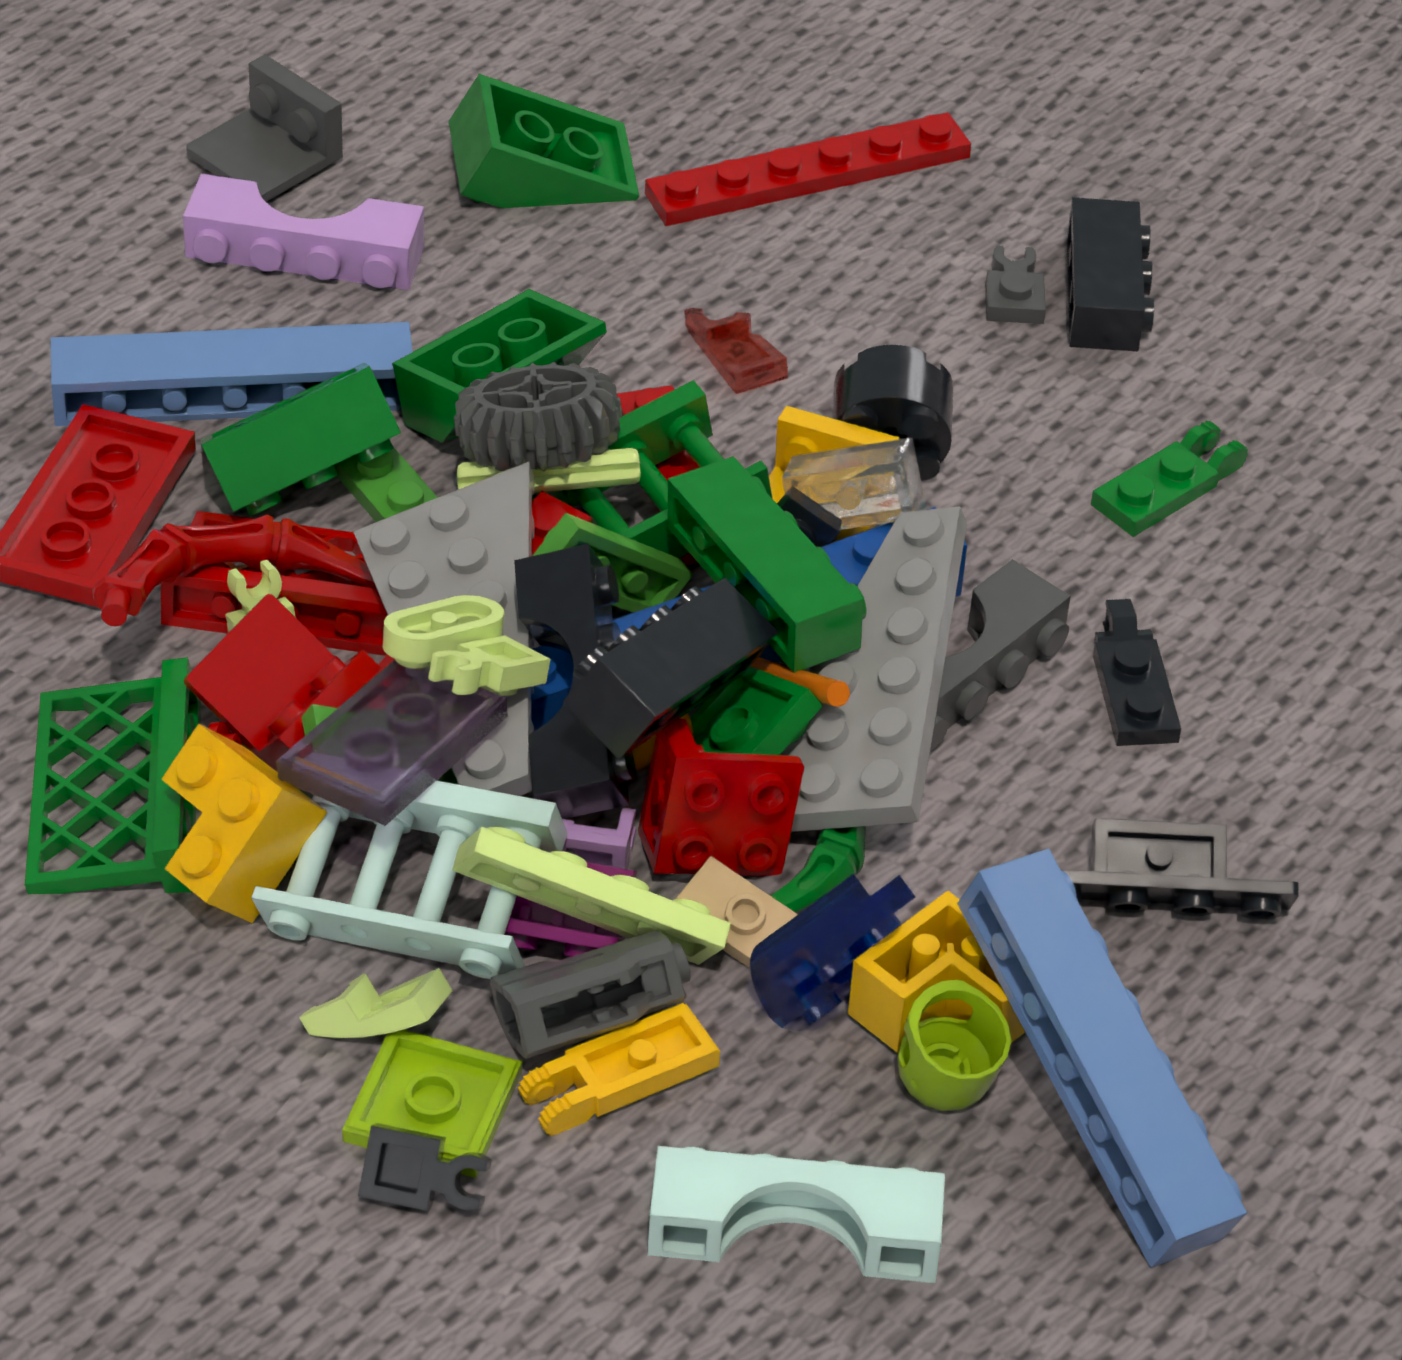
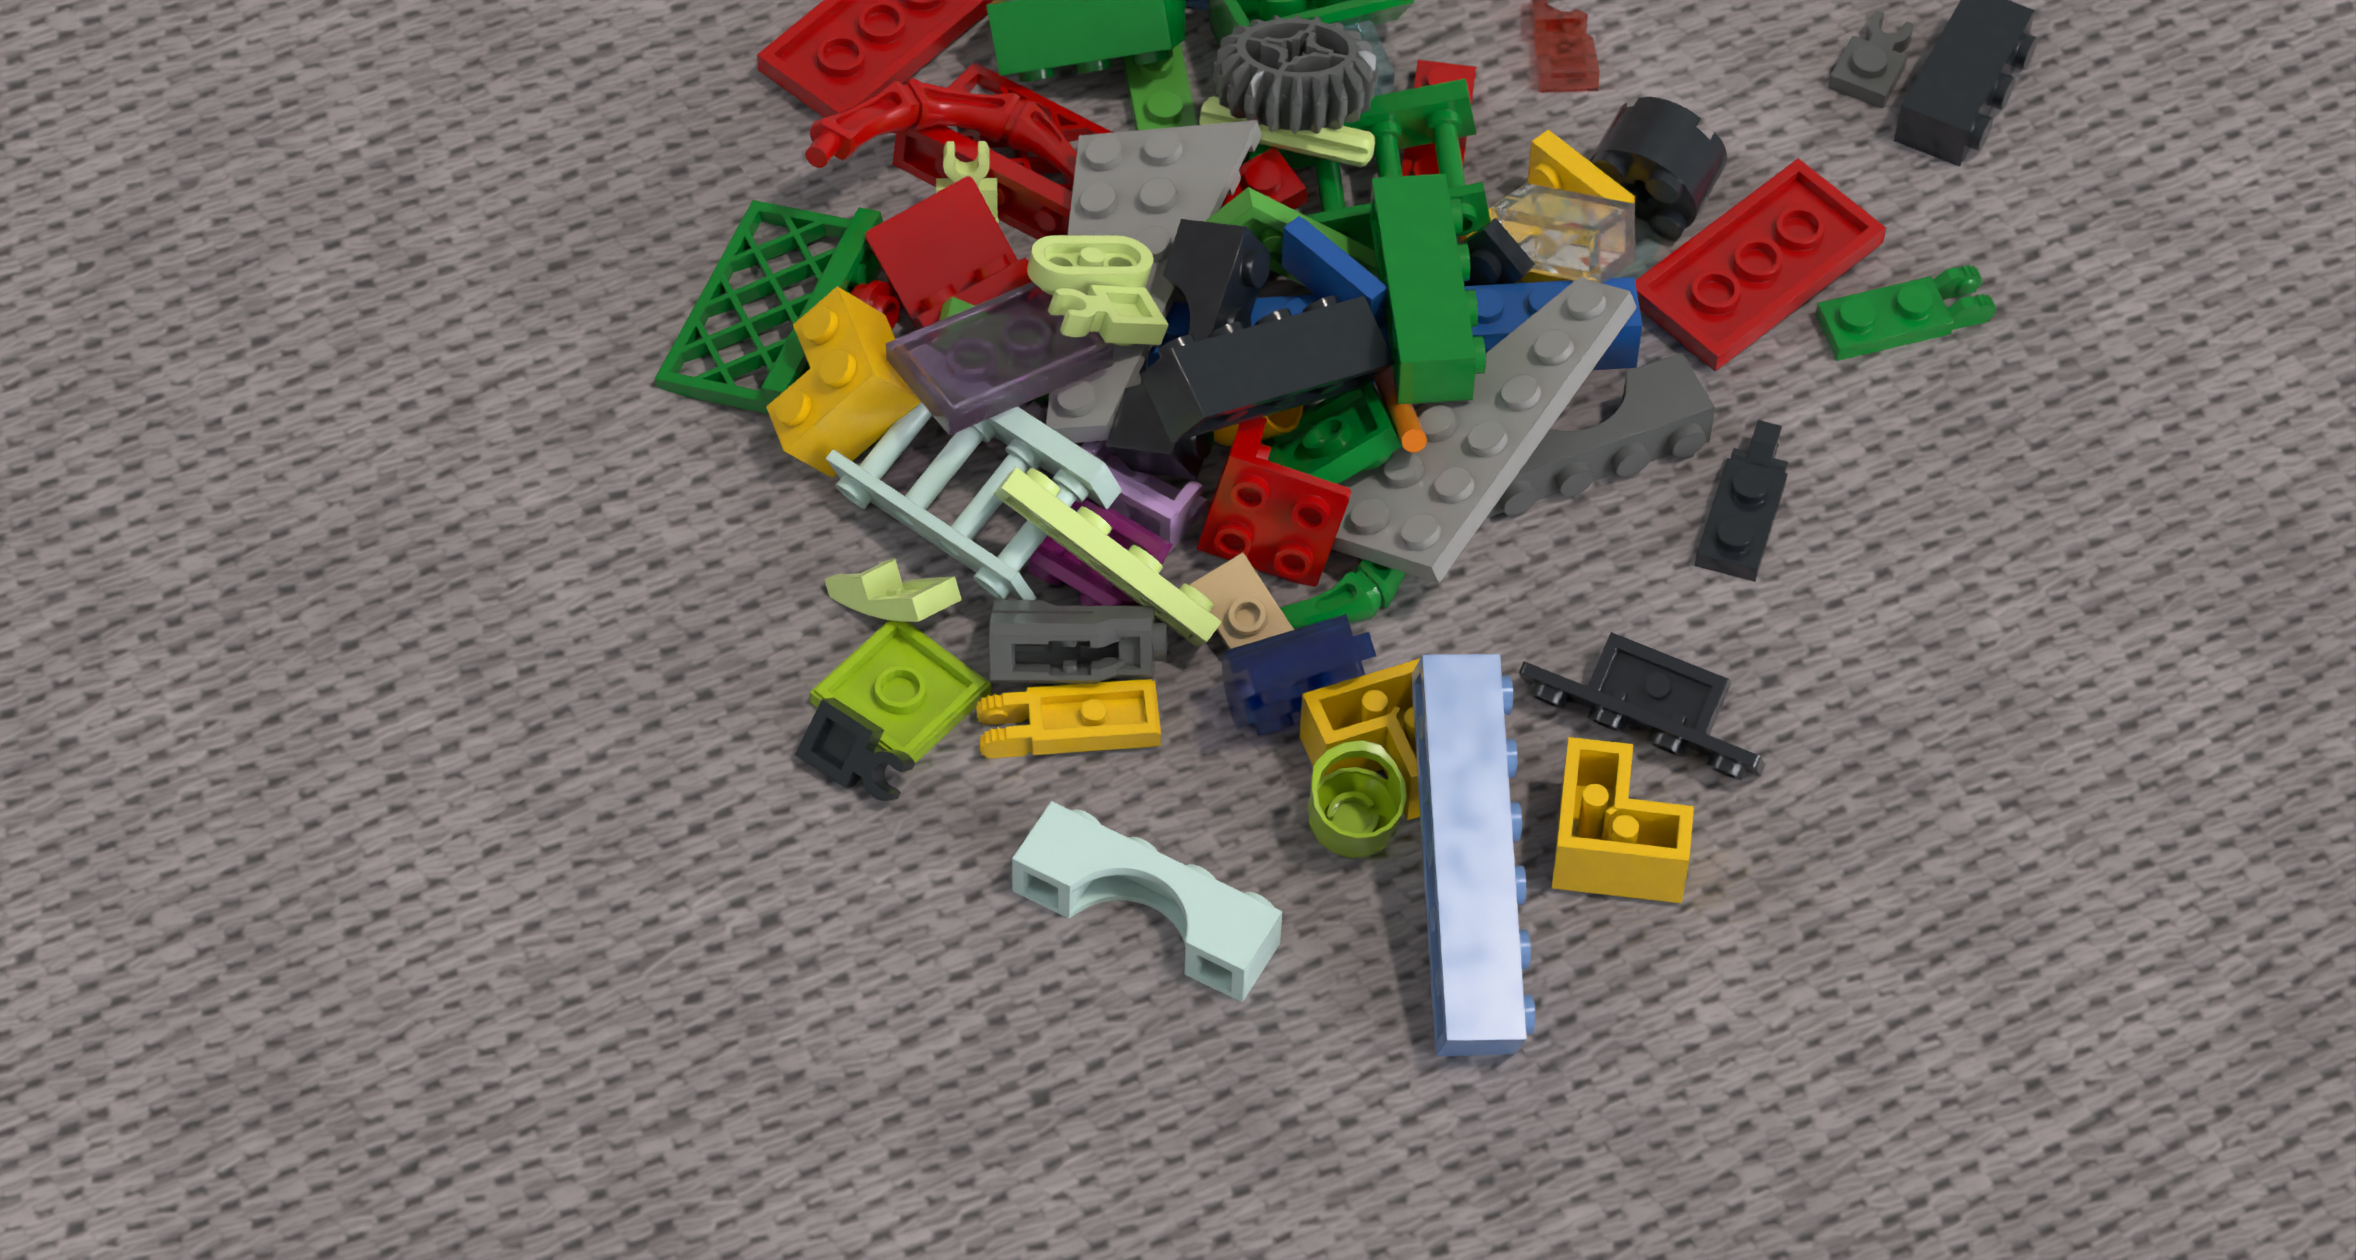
camera: 25 degrees right, 10 degrees up
(663, 570) = (1329, 269): none -> blue tile
(1025, 471) = (1757, 264): none -> red plate
(1204, 1002) = (1616, 841): none -> yellow brick

